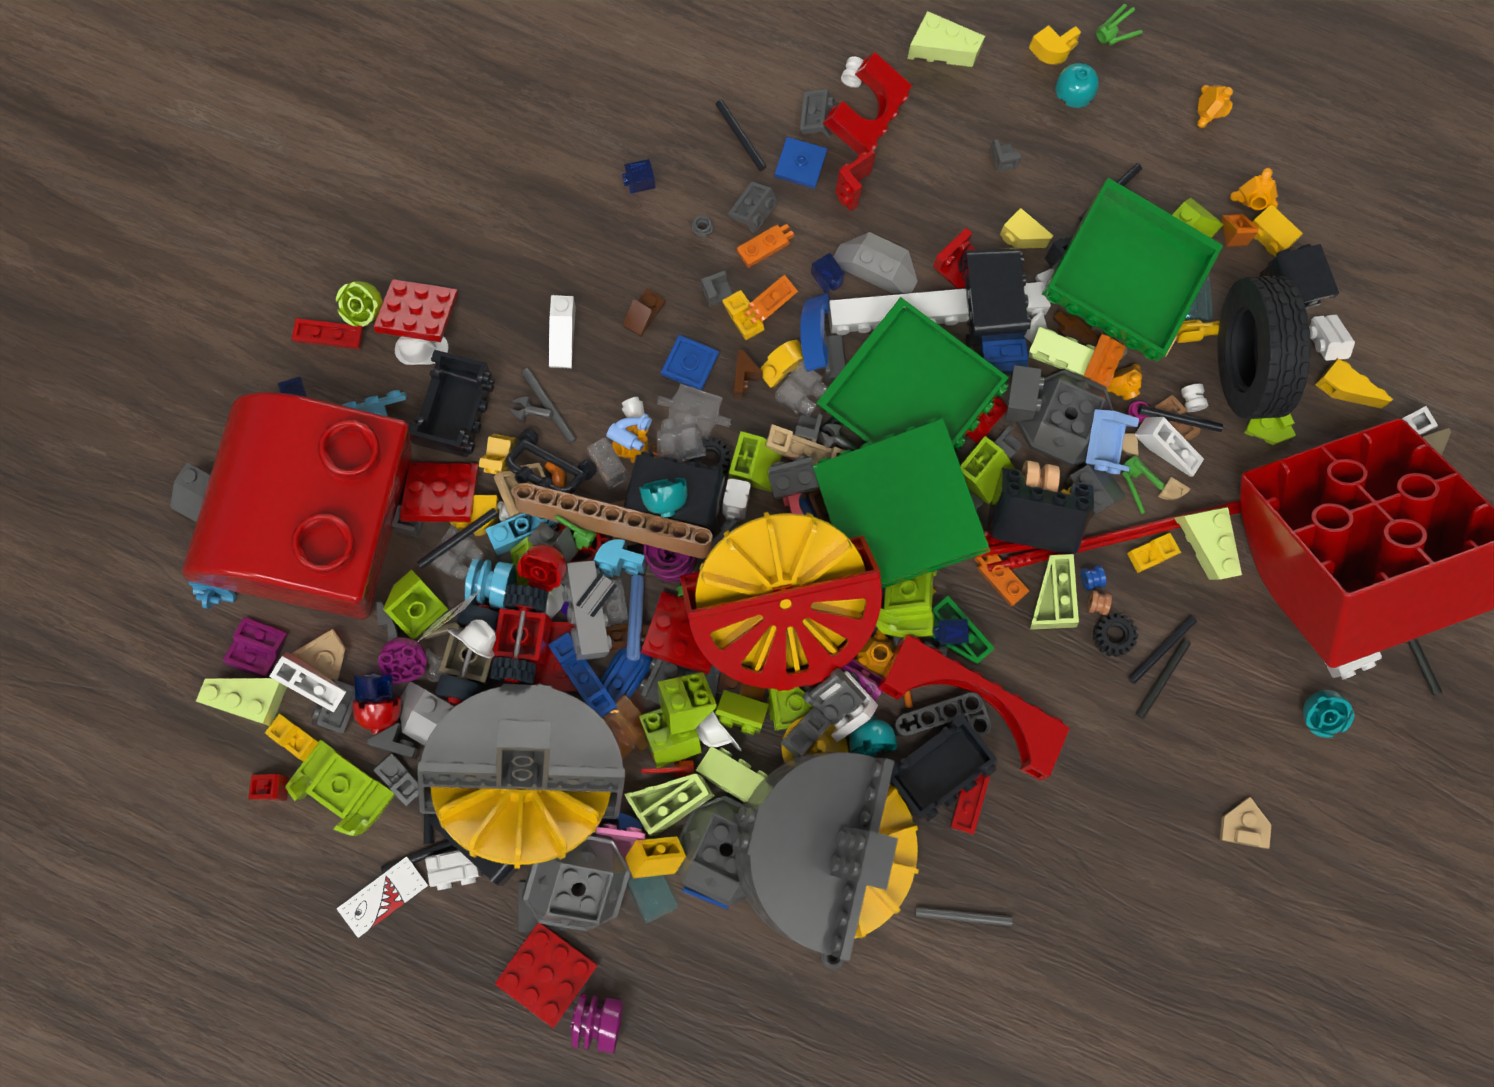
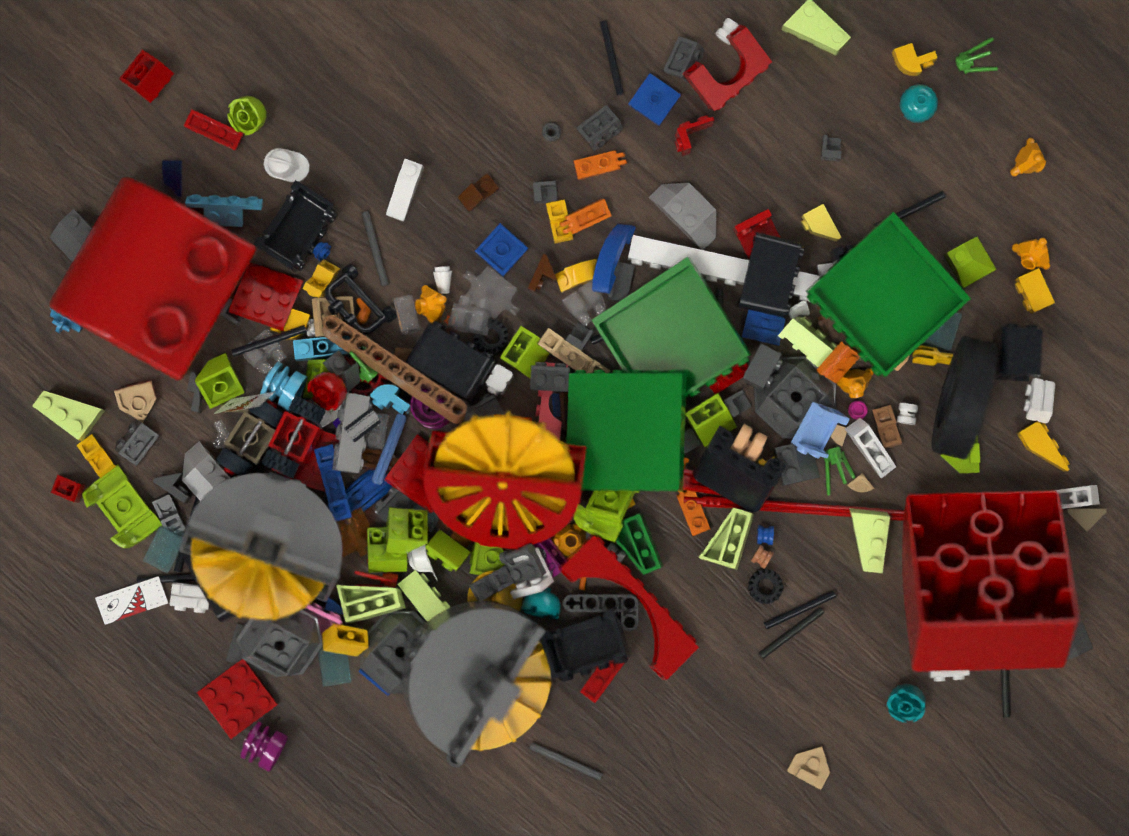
camera: 25 degrees right, 10 degrees up
(235, 299) = (146, 76): none -> red slope
(255, 648) = (86, 375): magenta slope -> none
(307, 681) = (121, 418): white slope -> none
(373, 687) = (170, 438): clear blue brick -> none
(377, 715) = (167, 458): red cylinder -> none
(403, 660) = (198, 424): magenta tile -> none
(403, 822) = (163, 549): none -> clear light blue plate
(416, 310) = (291, 134): plate -> none
(477, 637) = (260, 430): white piece -> none
(489, 424) = (322, 251): none -> blue plate
(529, 410) = (358, 248): flat silver bar -> none
(626, 438) = (426, 303): light blue plant -> none
(639, 176) = (511, 70): clear blue brick -> none
(664, 496) = (438, 366): teal cylinder -> none
(827, 273) = (641, 208): clear blue brick -> none
(836, 438) = (600, 354): flat silver bar -> none
(952, 632) = (630, 544): clear blue brick -> none
(1154, 552) = (823, 530): yellow slope -> none
(1179, 418) = (886, 428): black bar -> none
(1238, 230) = (1005, 277): orange slope -> none

